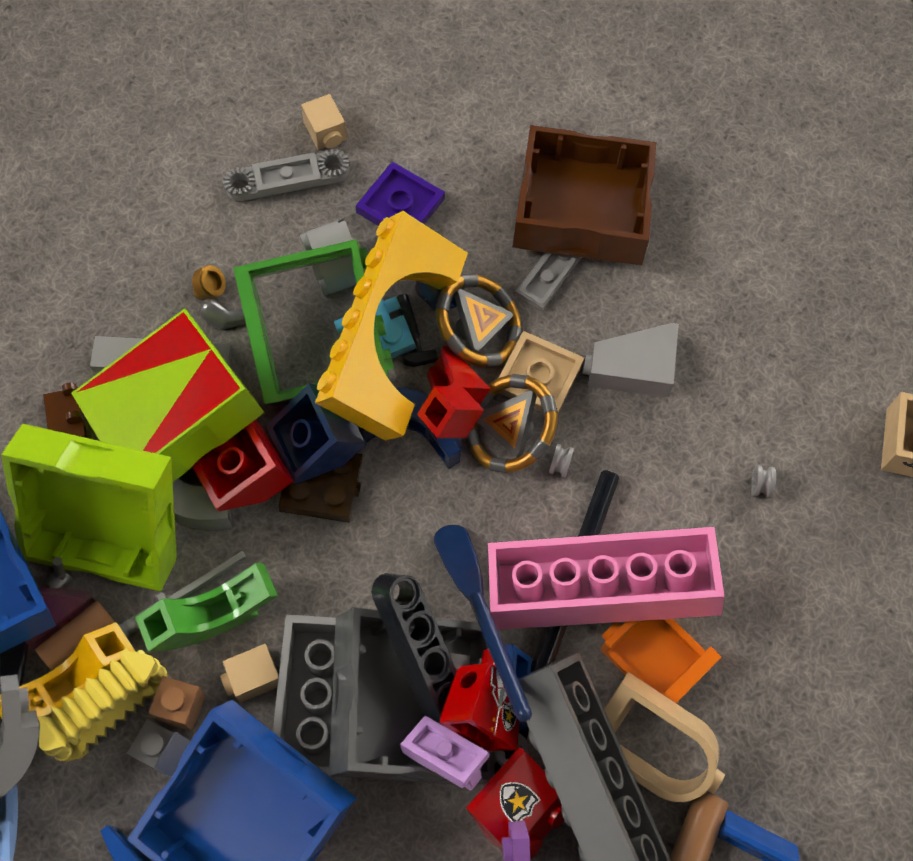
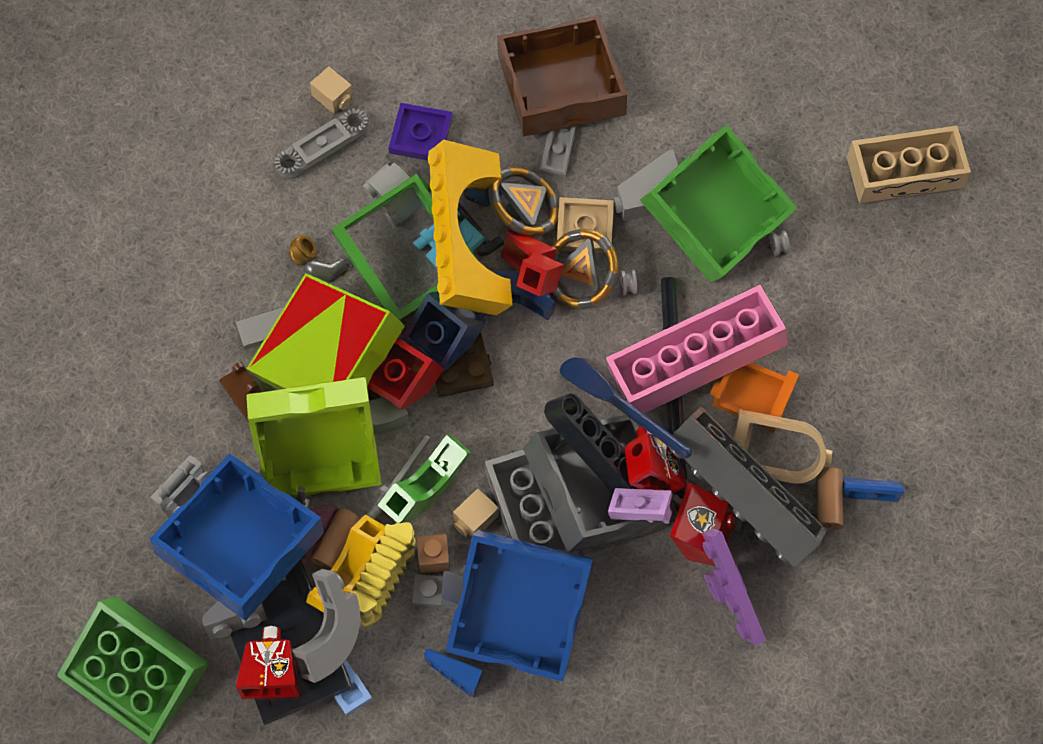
camera: 20 degrees left, 0 degrees up
(706, 408) = (718, 204): none -> bright green tile

